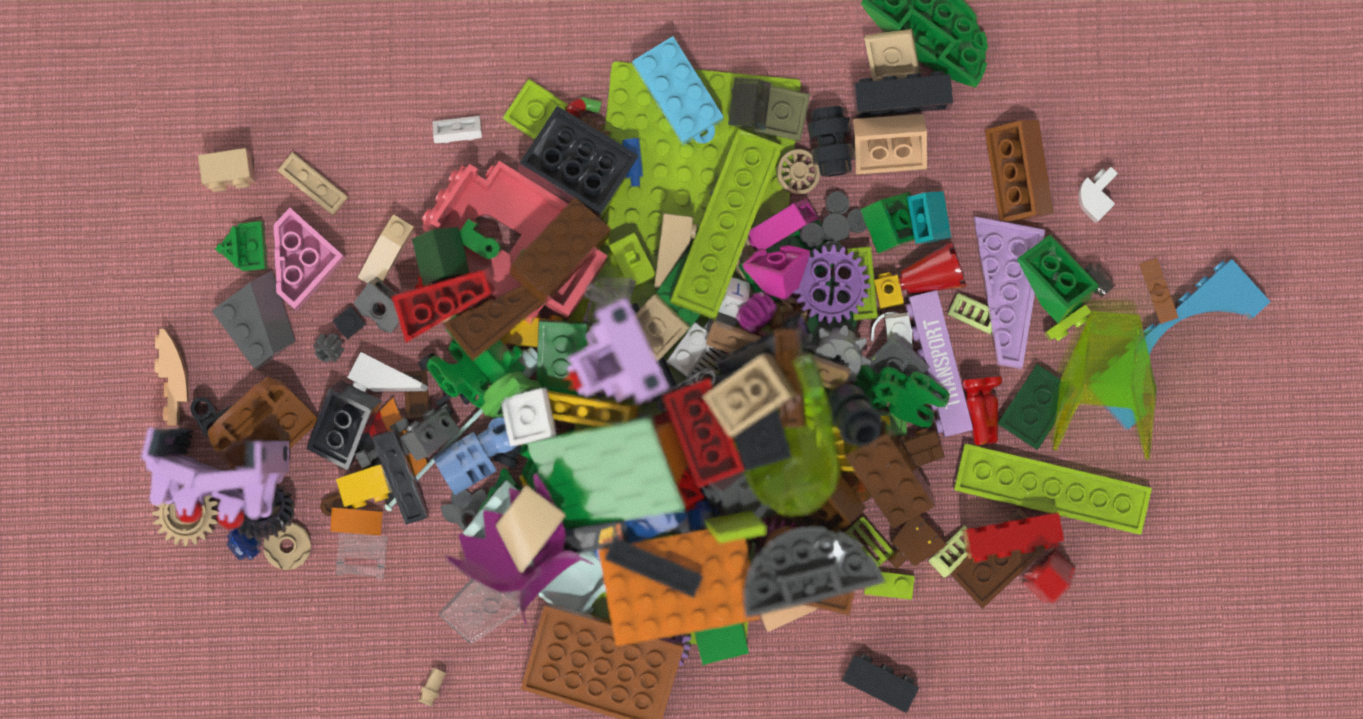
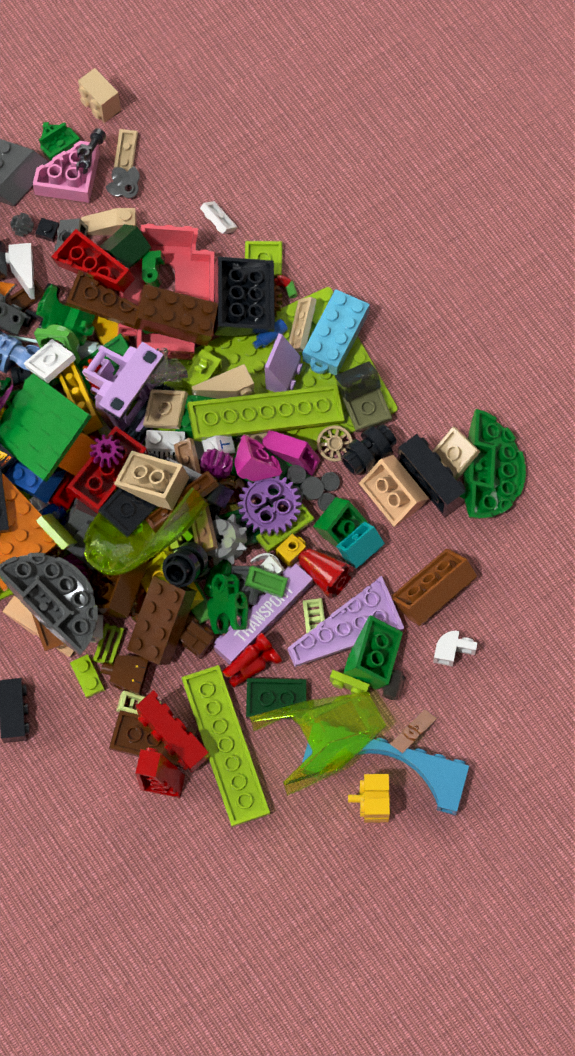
camera: 60 degrees right, 15 degrees down
(304, 234) = (85, 151): none -> black bar
(344, 205) = (122, 180): none -> dark grey plate
(645, 121) = (302, 323): none -> tan plate
(684, 418) = (108, 444): none -> magenta gear
(686, 174) = (282, 366): none -> lavender slope
(914, 341) = (266, 581): none -> bright green tile
(1206, 375) = (373, 798): none -> yellow brick

